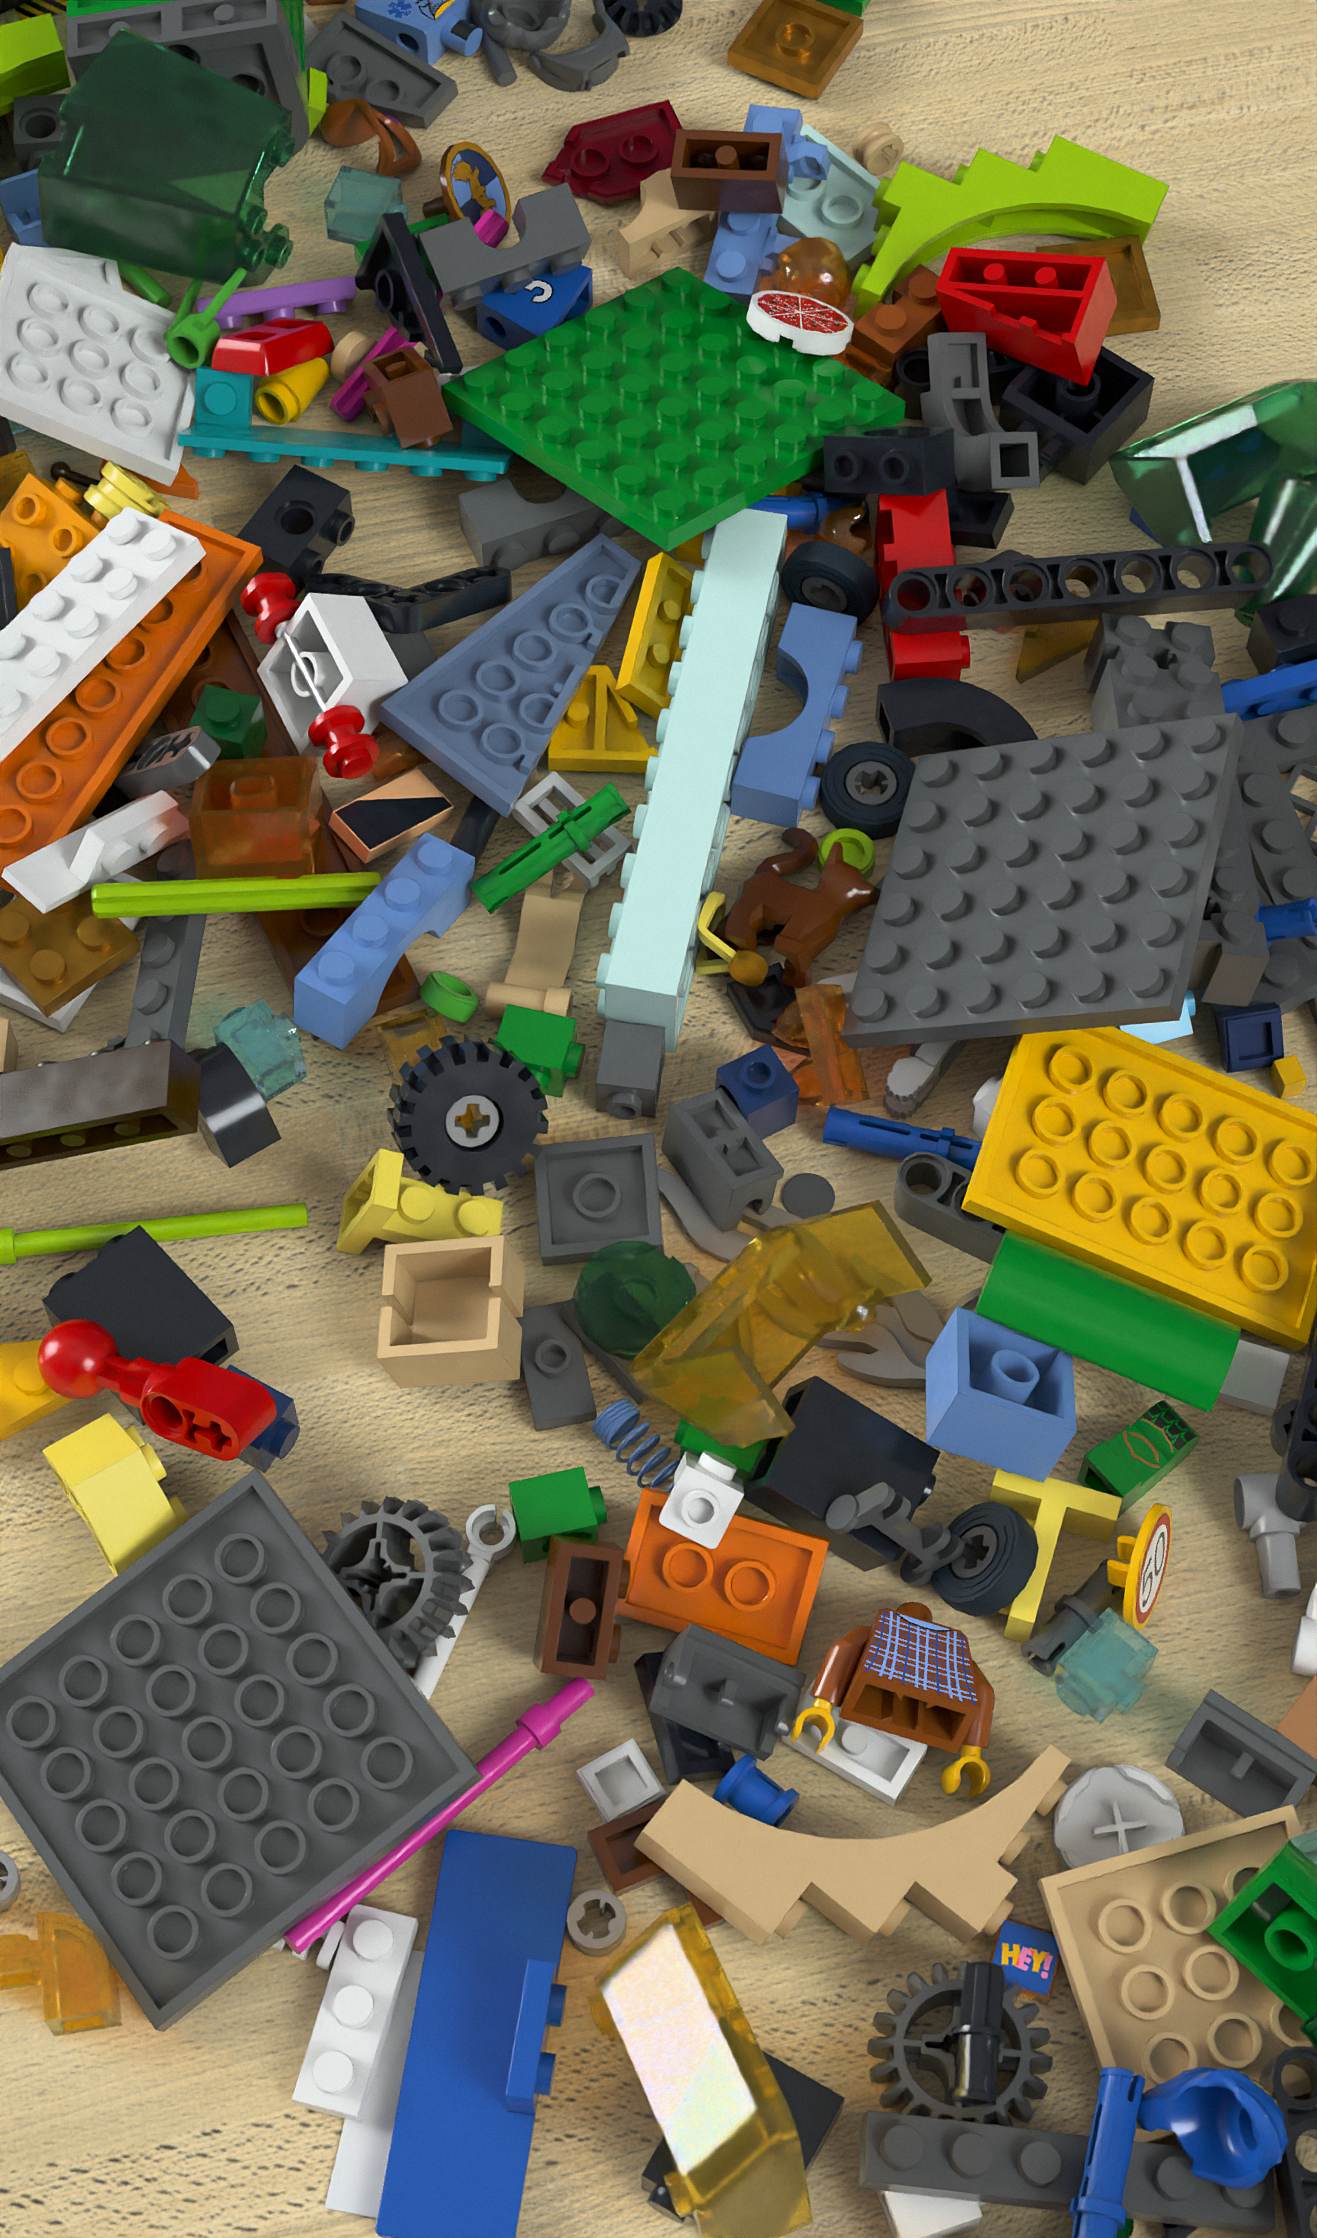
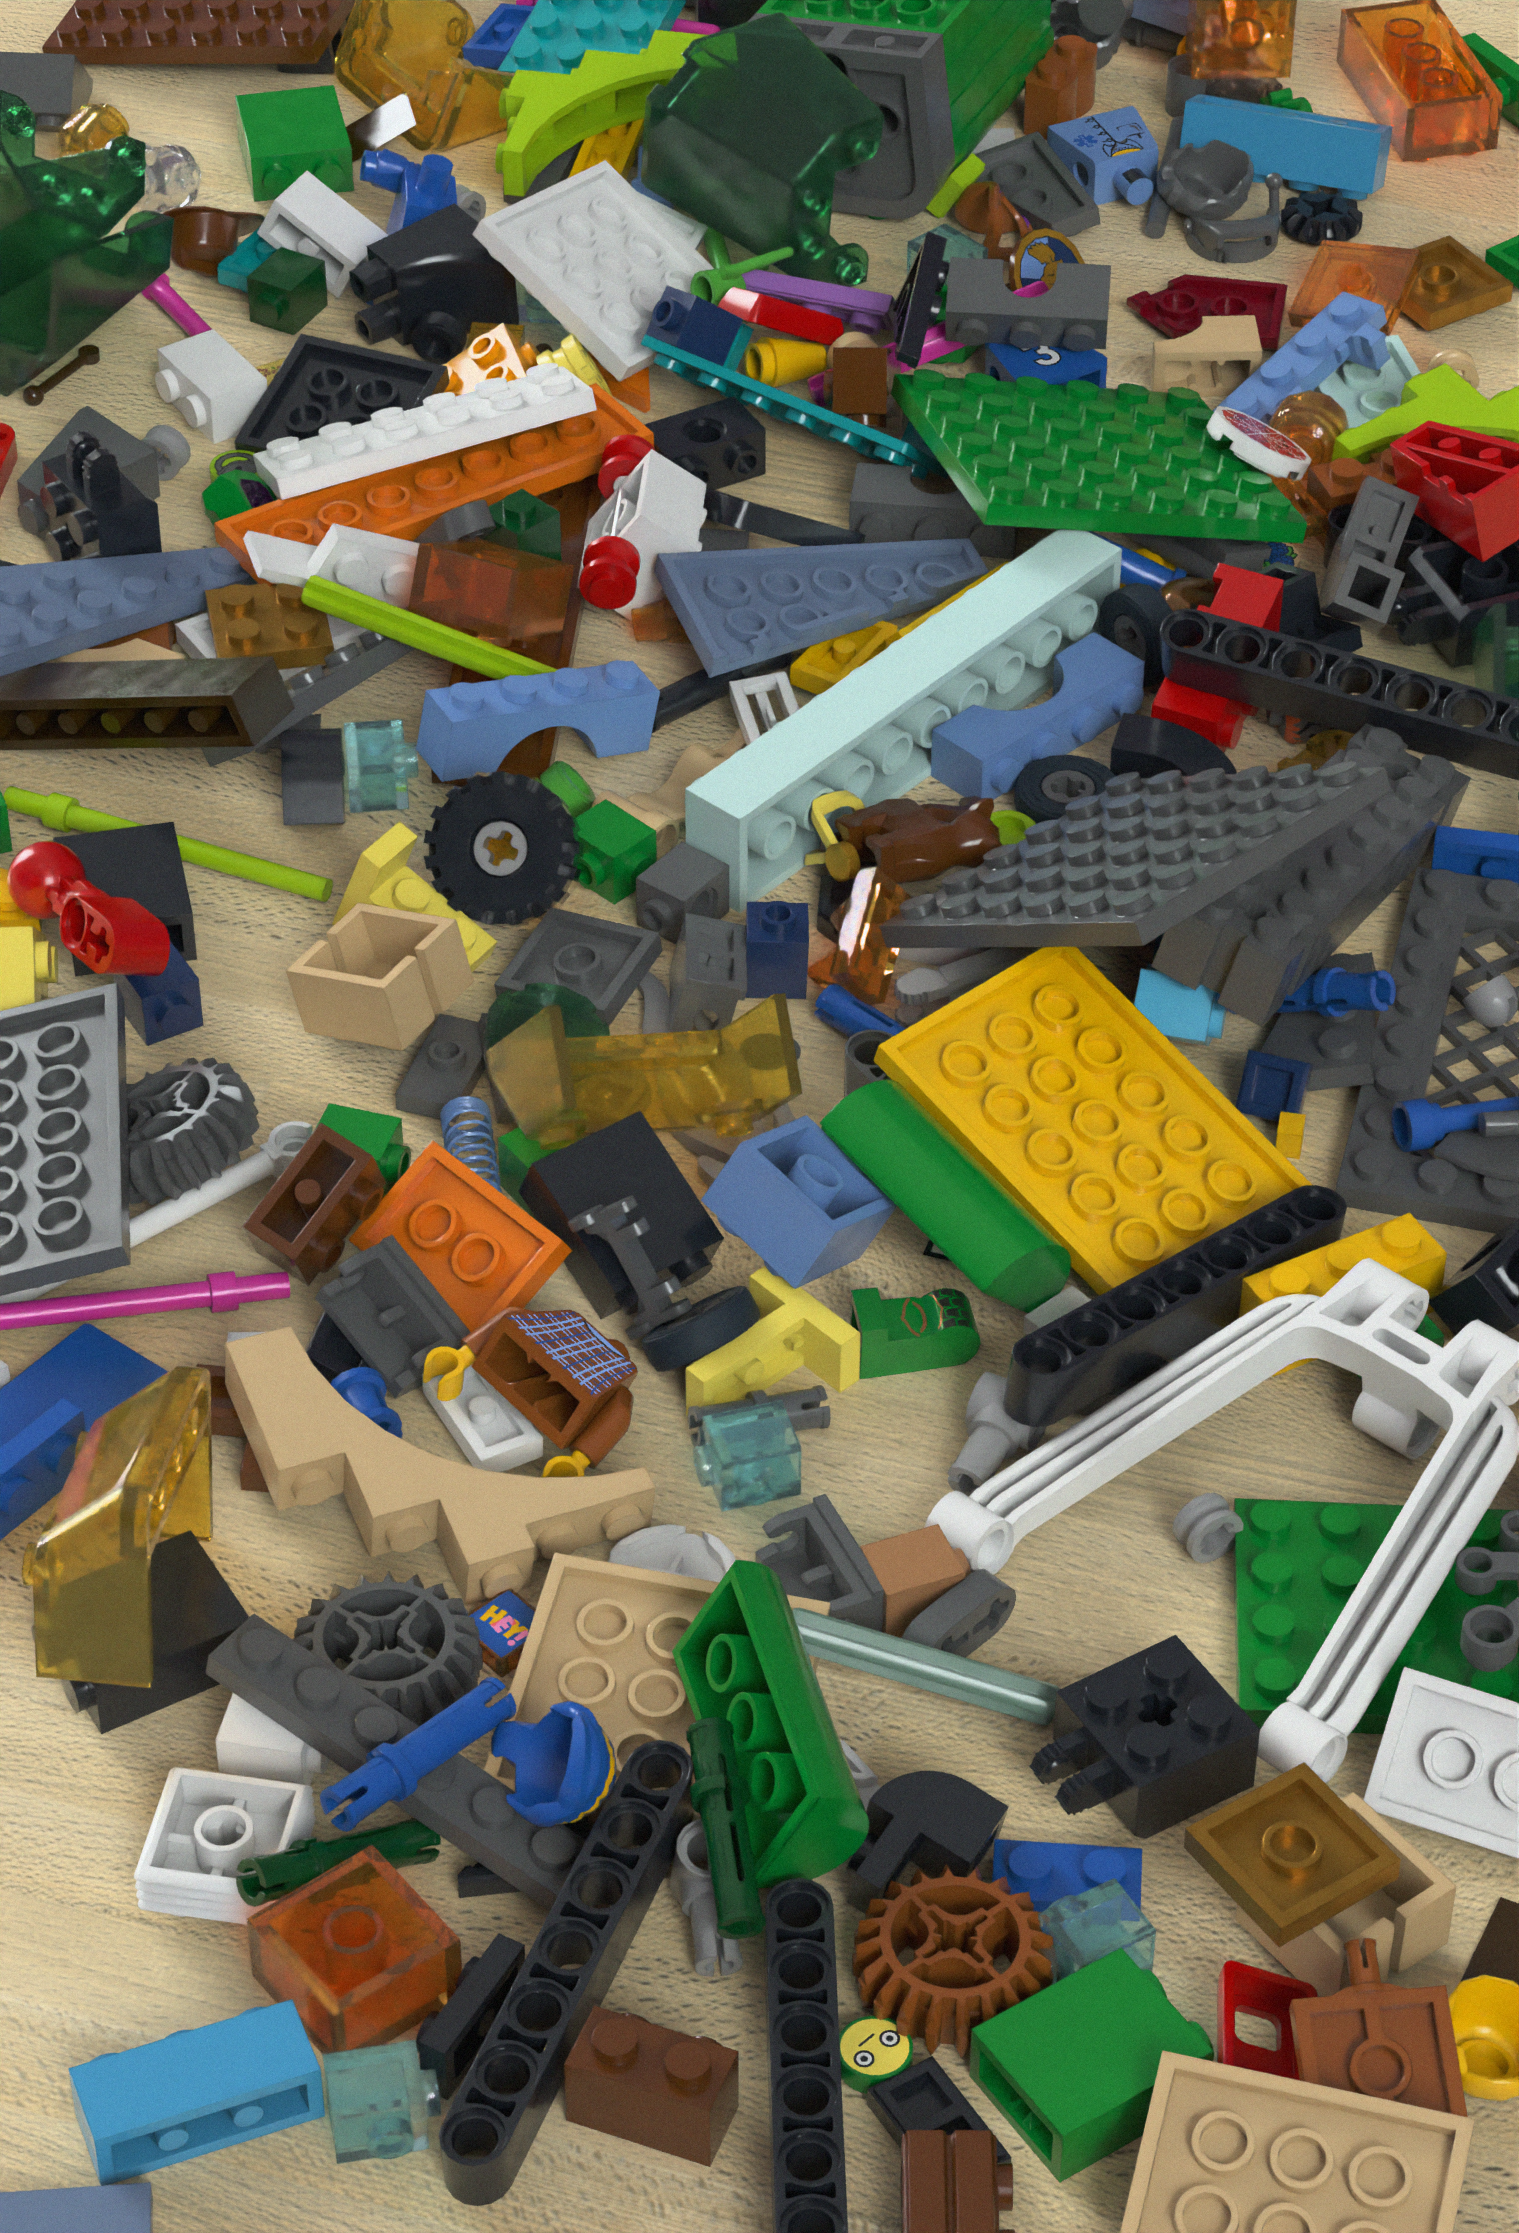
camera: 30 degrees right, 20 degrees down
(215, 404) = (694, 325): none -> dark blue brick
(391, 815) = (596, 646): tile -> none
(551, 847) = (722, 717): green pin -> none
(703, 1498) = (476, 1164): white bracket -> none
(729, 171) = (1274, 316): reddish brown brick -> none
(732, 72) = (1362, 270): none -> clear orange plate
(889, 460) = (1246, 539): black brick -> none
(979, 2035) = (398, 1621): black axle -> none
(1147, 1565) = (842, 1389): piece -> none

